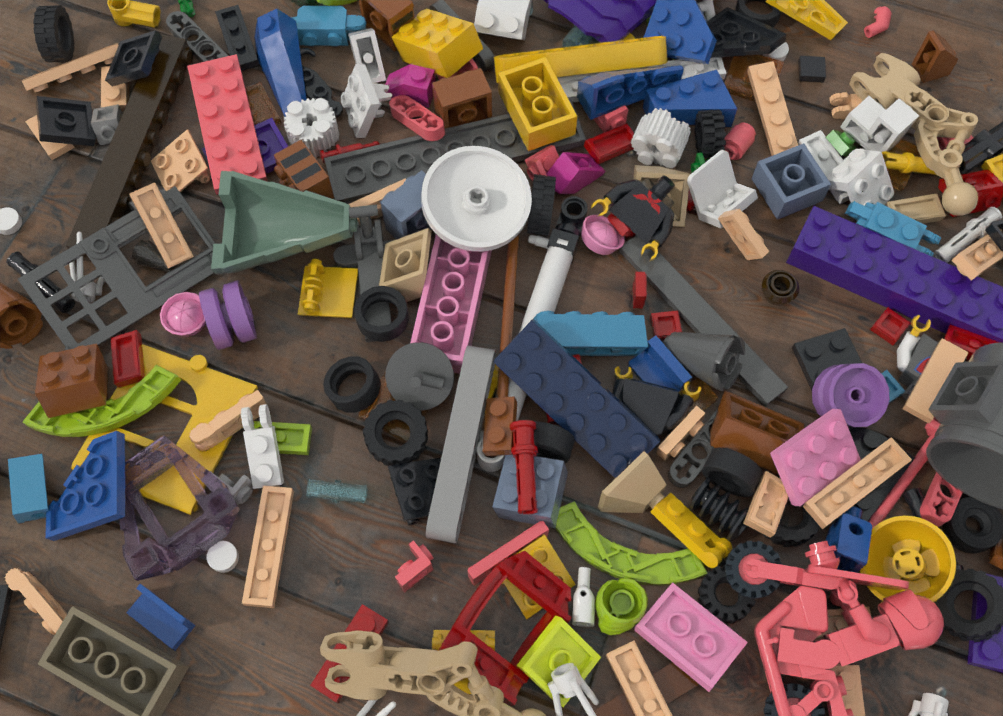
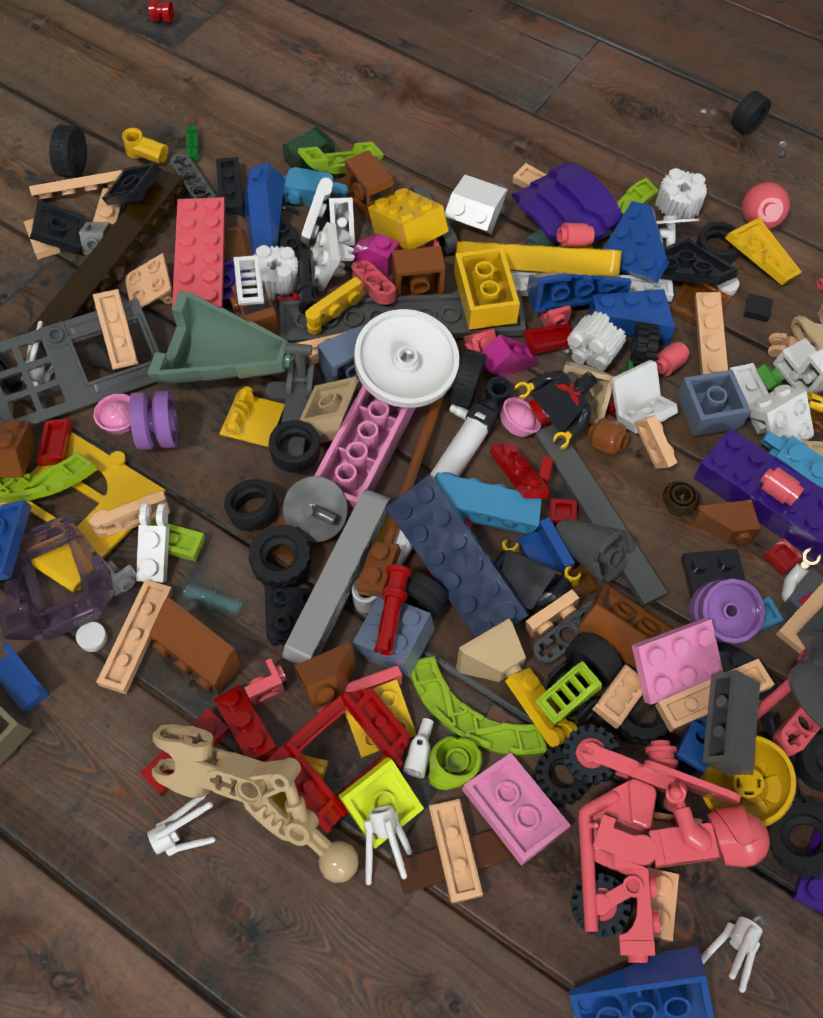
camera: 10 degrees right, 5 degrees down
(284, 127) = (248, 263): none -> white slope
(332, 546) = (194, 647): none -> dark orange slope
(338, 50) = (317, 210): none -> white hinge
(351, 140) = (307, 288): none -> black pin
(383, 153) = (333, 305): none -> yellow plate
(405, 614) = (245, 724): none -> red plate
(475, 546) = (327, 674): none -> dark orange slope
(615, 28) = (575, 235): none -> coral brick
(615, 293) = (519, 471): none -> red plate
(694, 236) = (608, 436): none -> dark orange head
(735, 493) = (561, 685): none -> lime slope
(832, 301) = (729, 521): none -> dark orange slope
(879, 258) = (781, 486): none -> coral brick
(882, 509) = (731, 723): none -> dark grey brick

